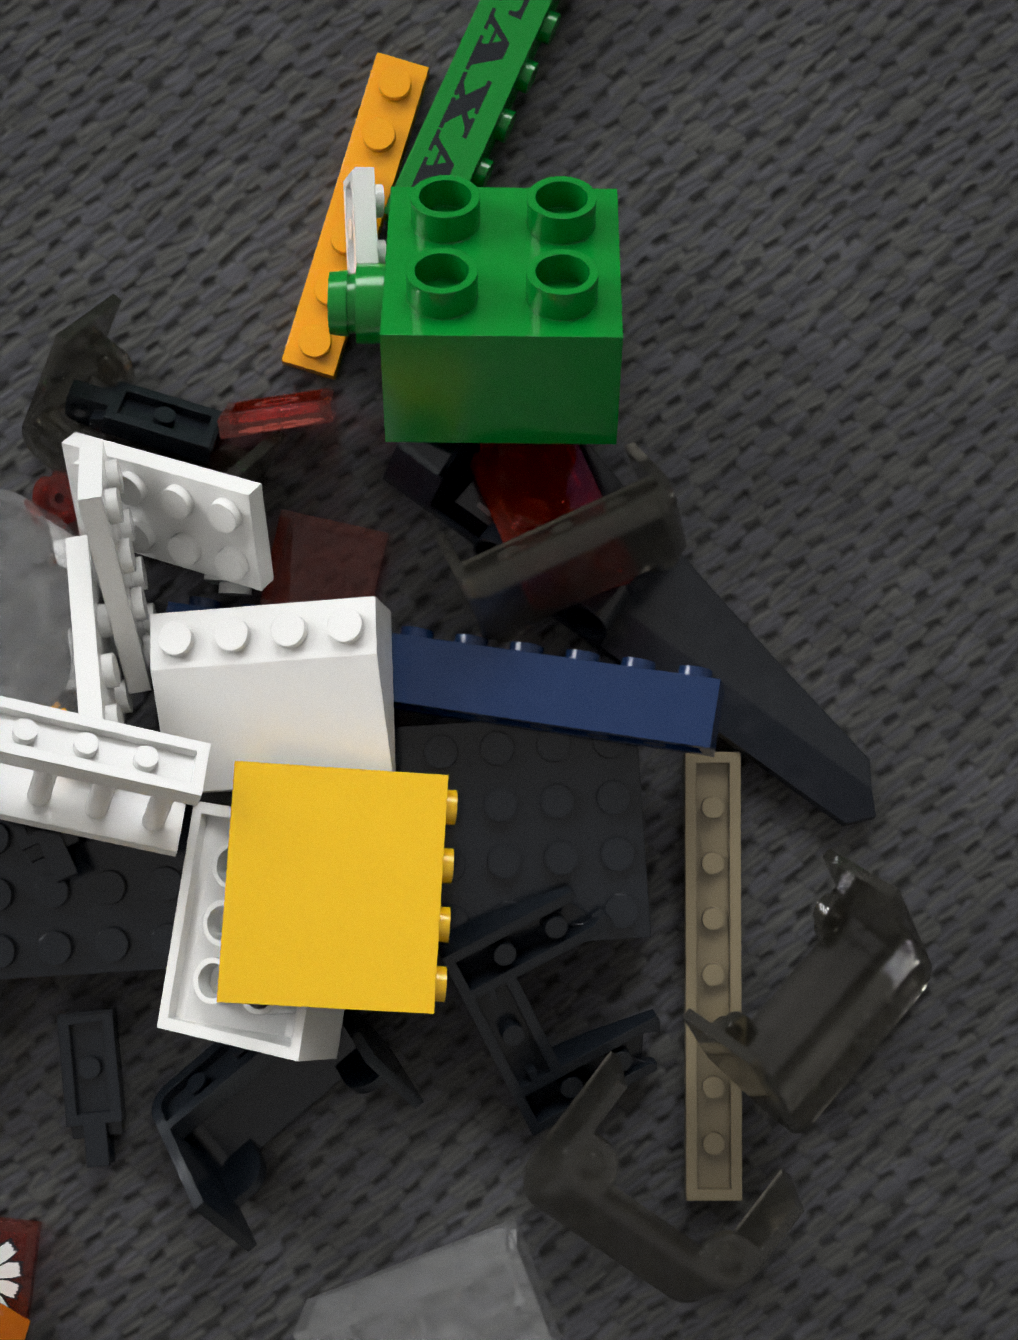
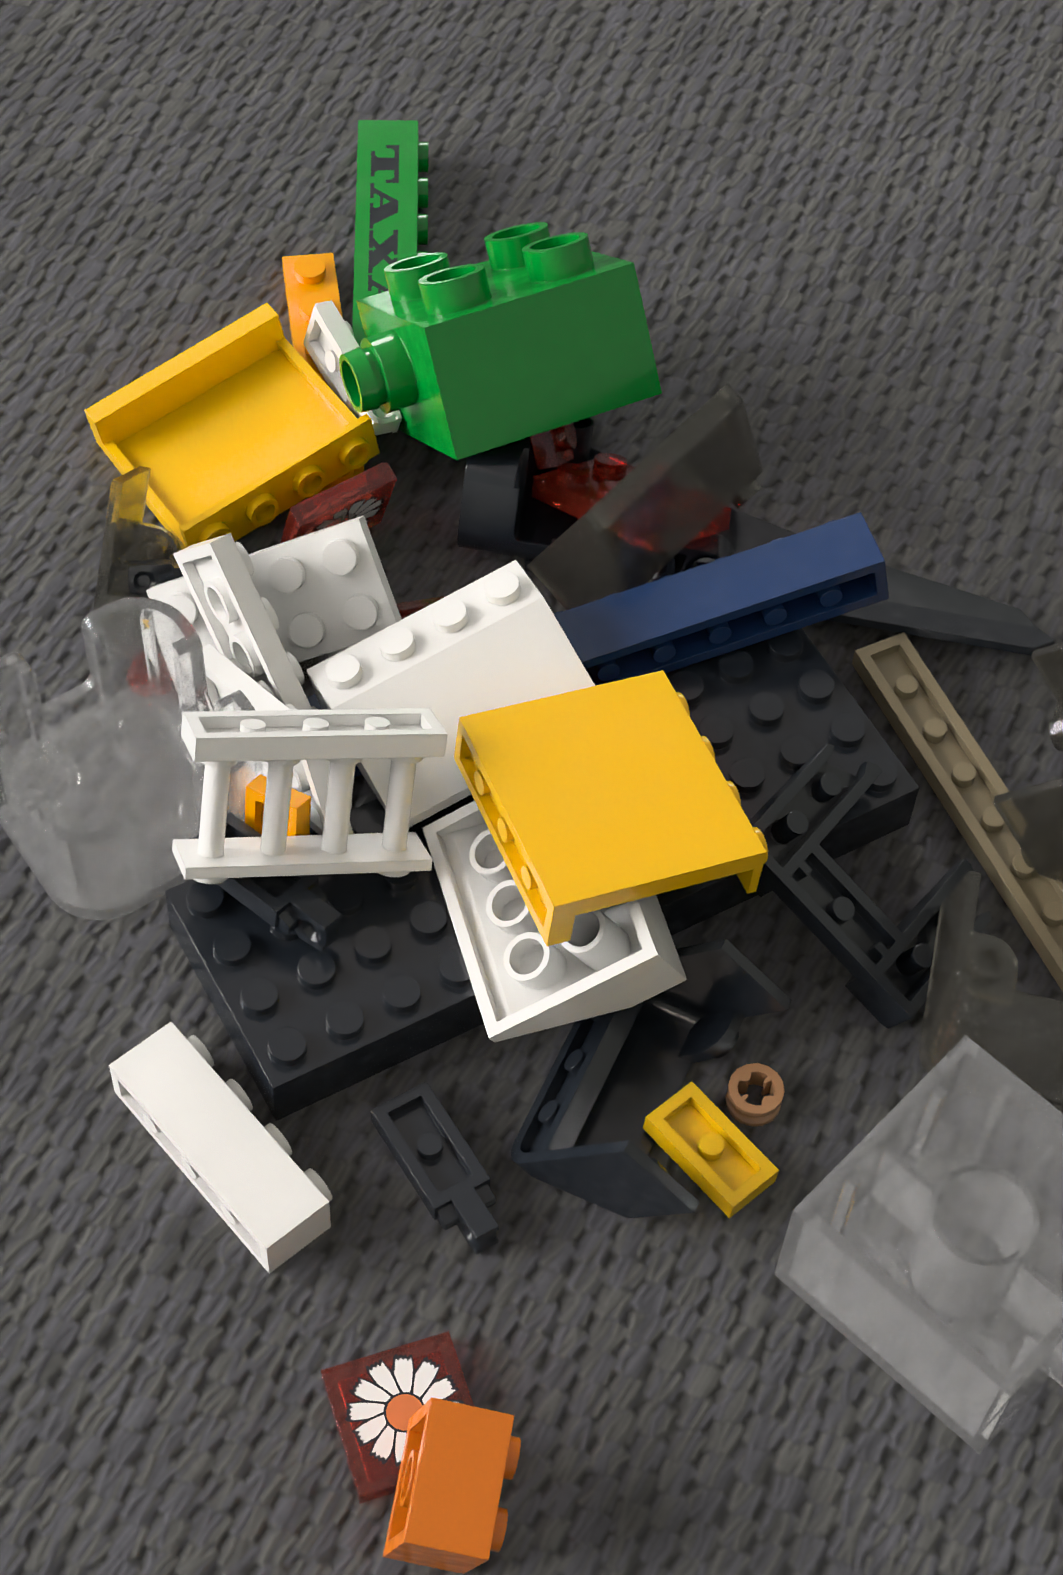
camera: 30 degrees left, 30 degrees down
(228, 266) = (231, 431): none -> yellow panel
(314, 1167) = (710, 1149): none -> yellow plate
(382, 1148) = (770, 1106): none -> medium nougat bush

